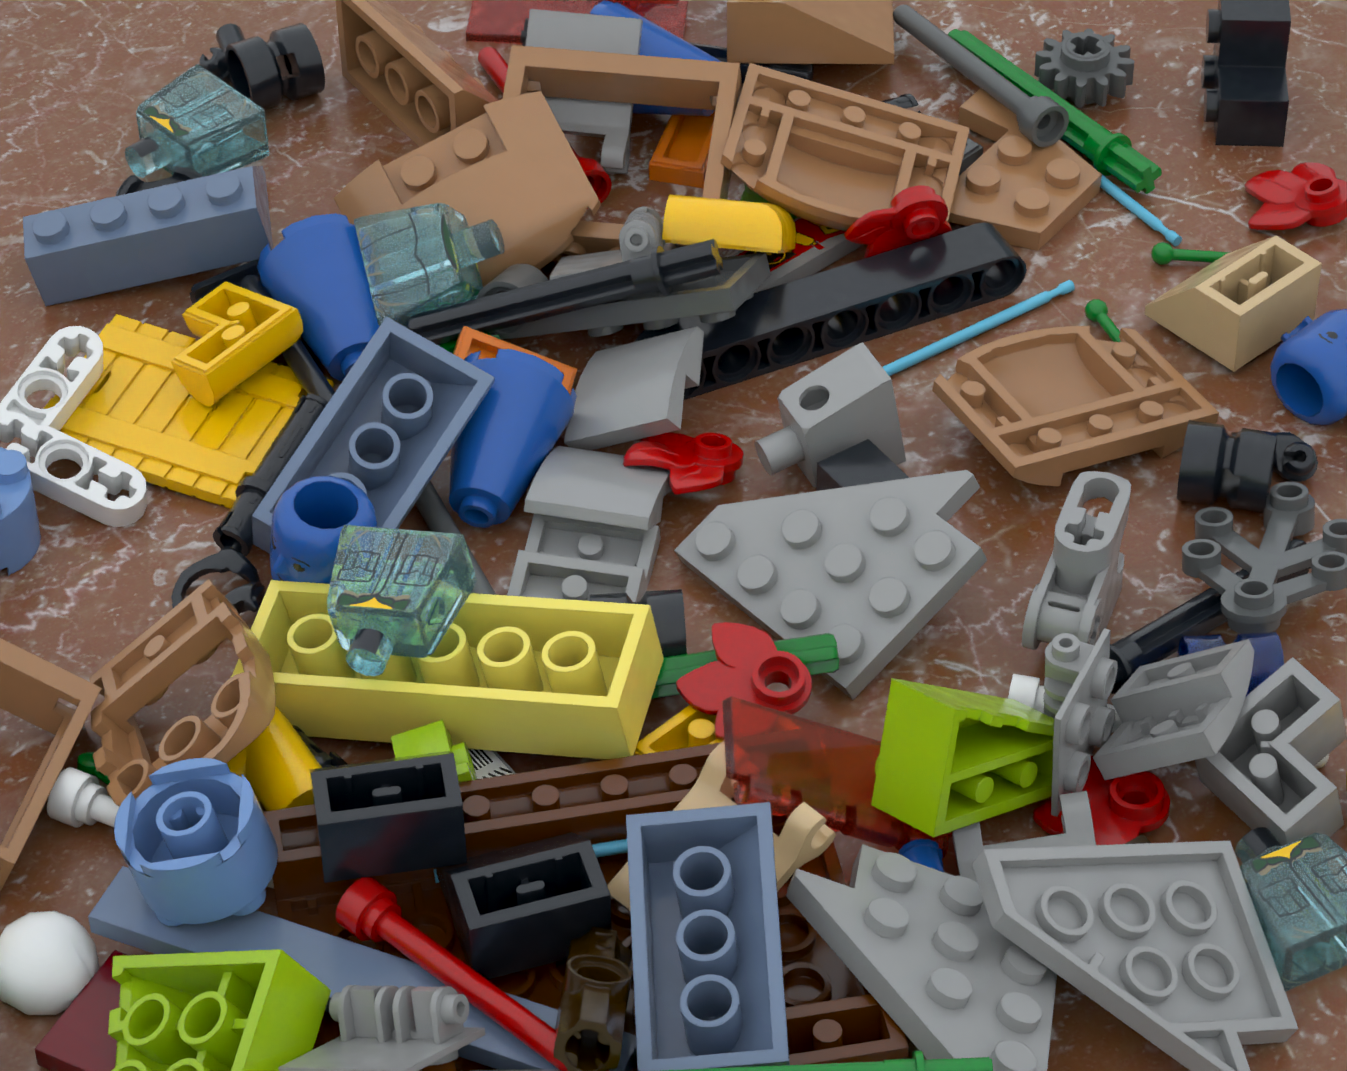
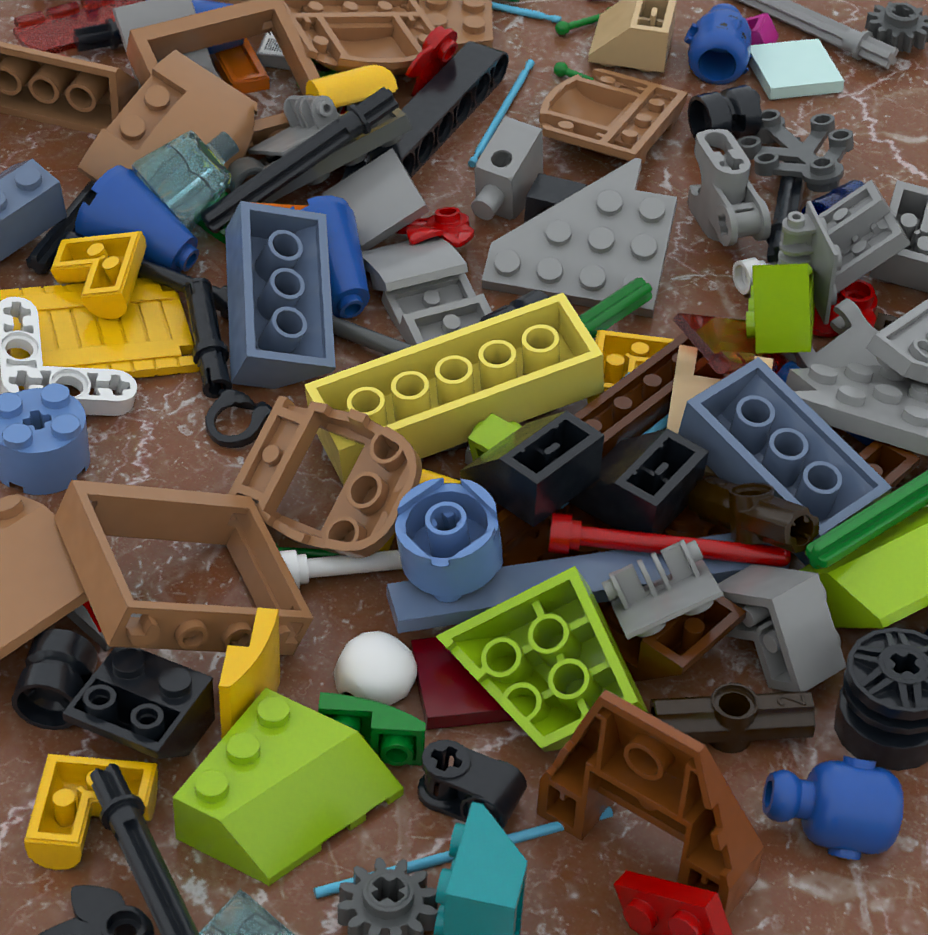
camera: 40 degrees left, 0 degrees up
(309, 527) = (315, 344): blue piece -> none
(396, 592) = (409, 350): clear light blue torso -> none
(743, 670) = (622, 321): red plate -> none

